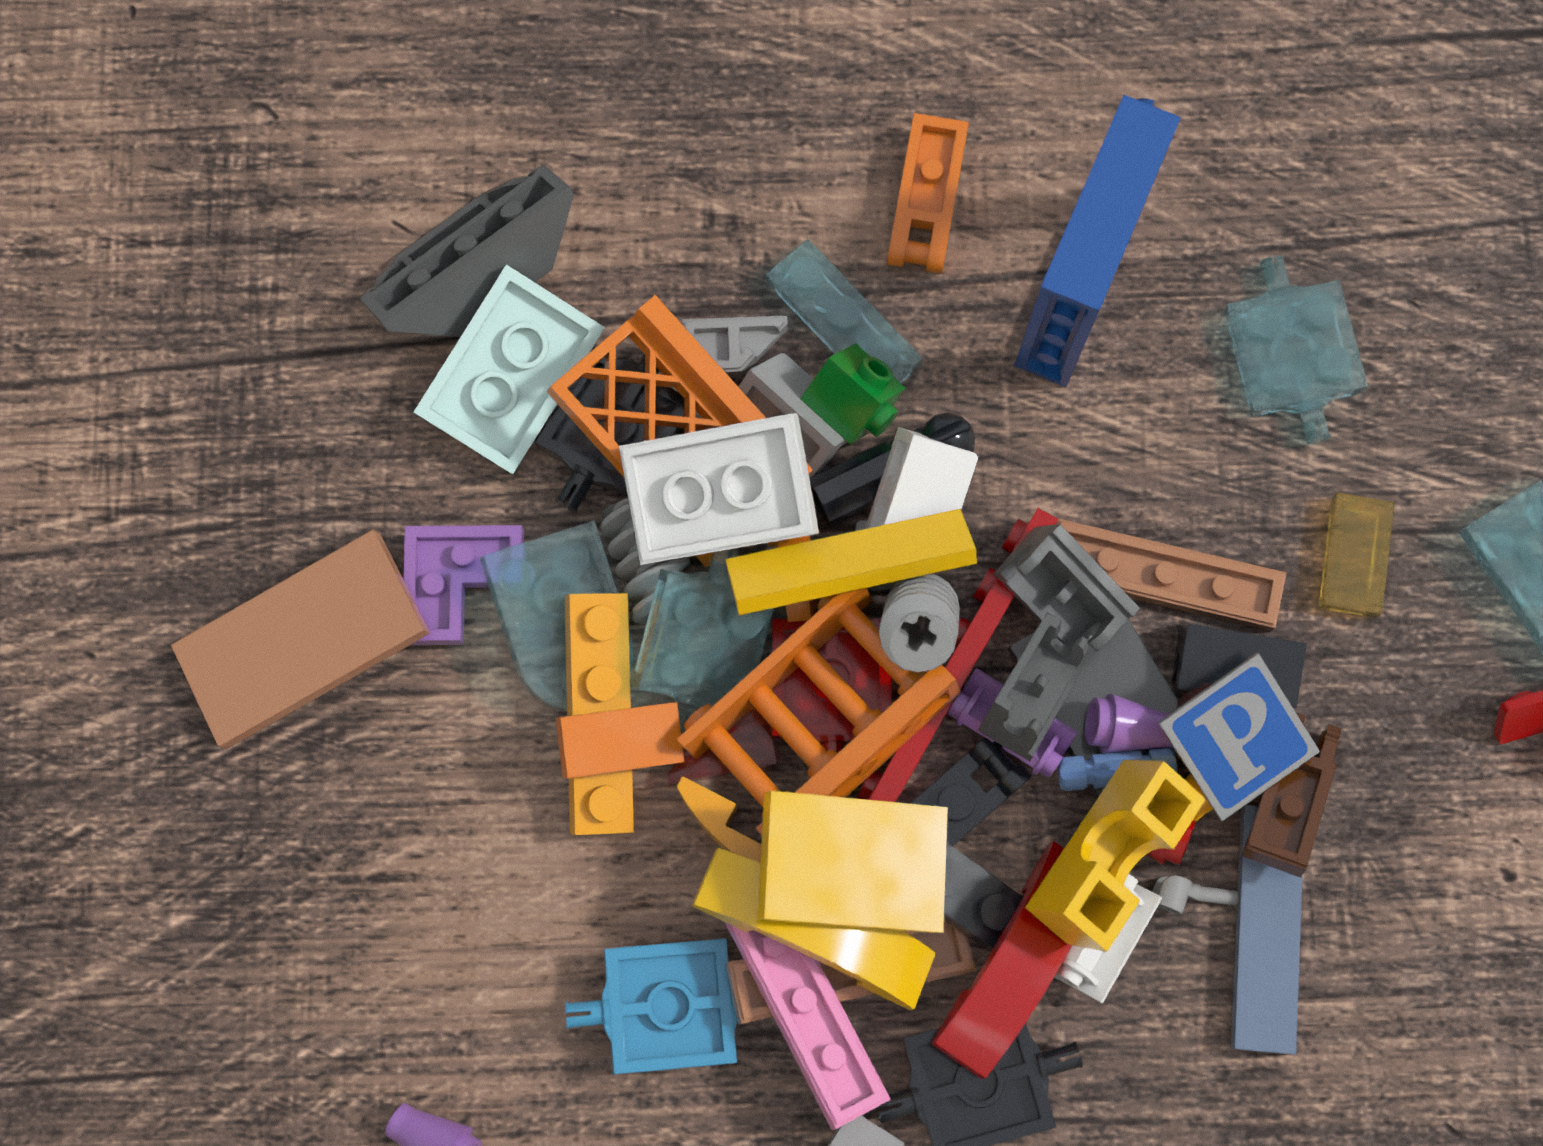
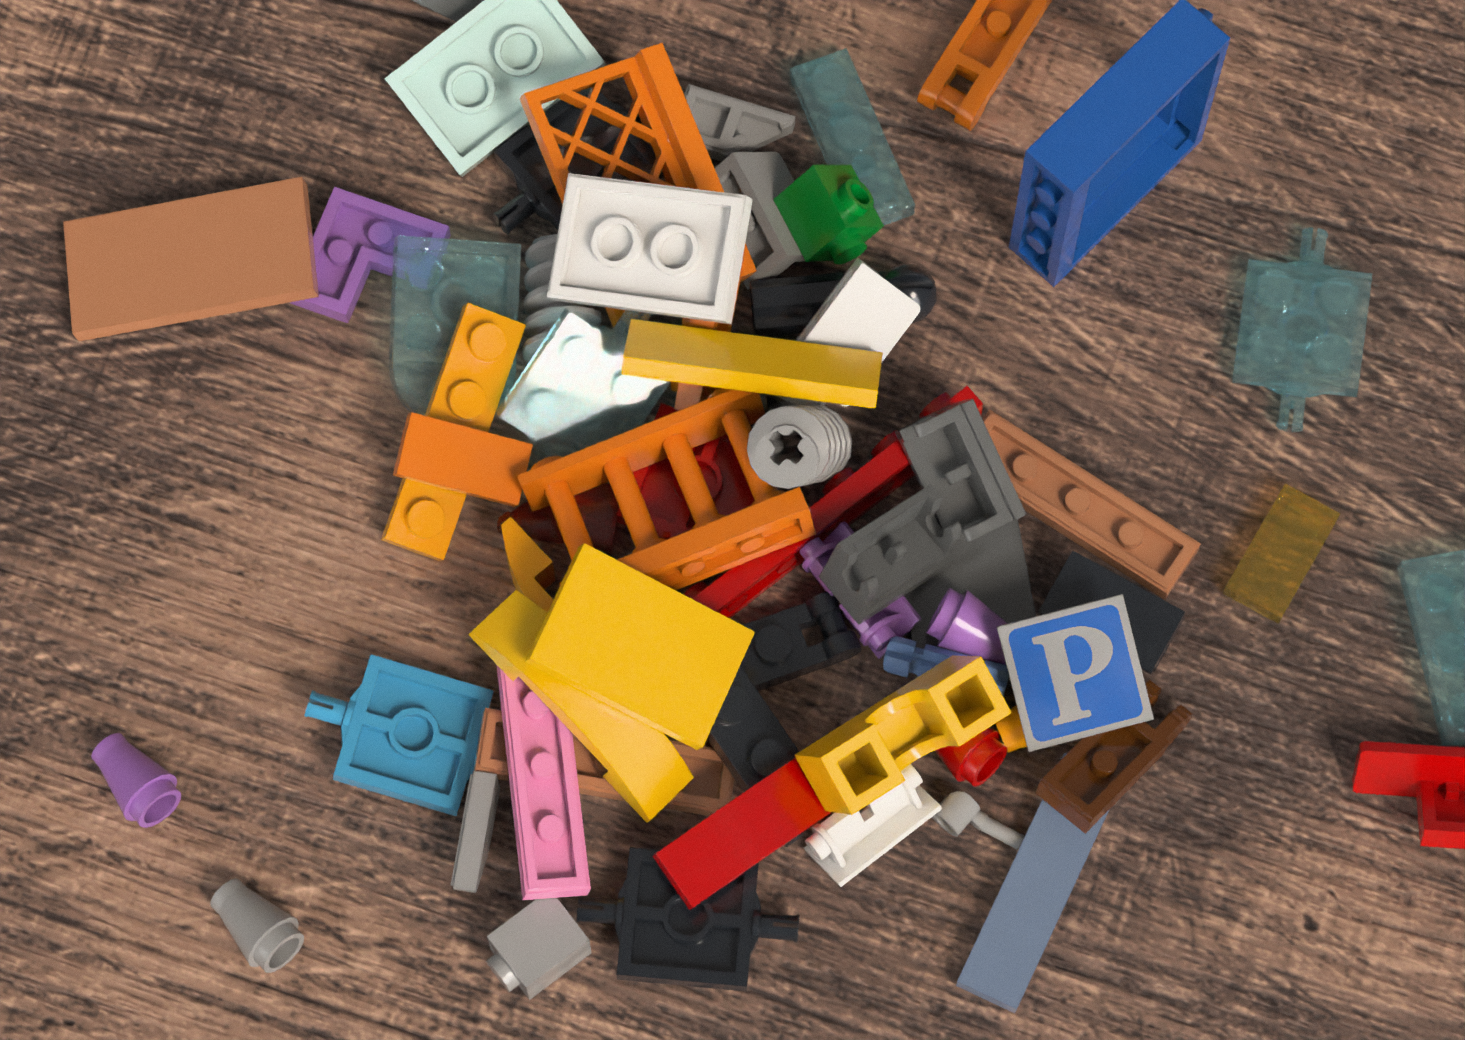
camera: 20 degrees right, 5 degrees down
(761, 1081) = (475, 831): none -> light grey tile

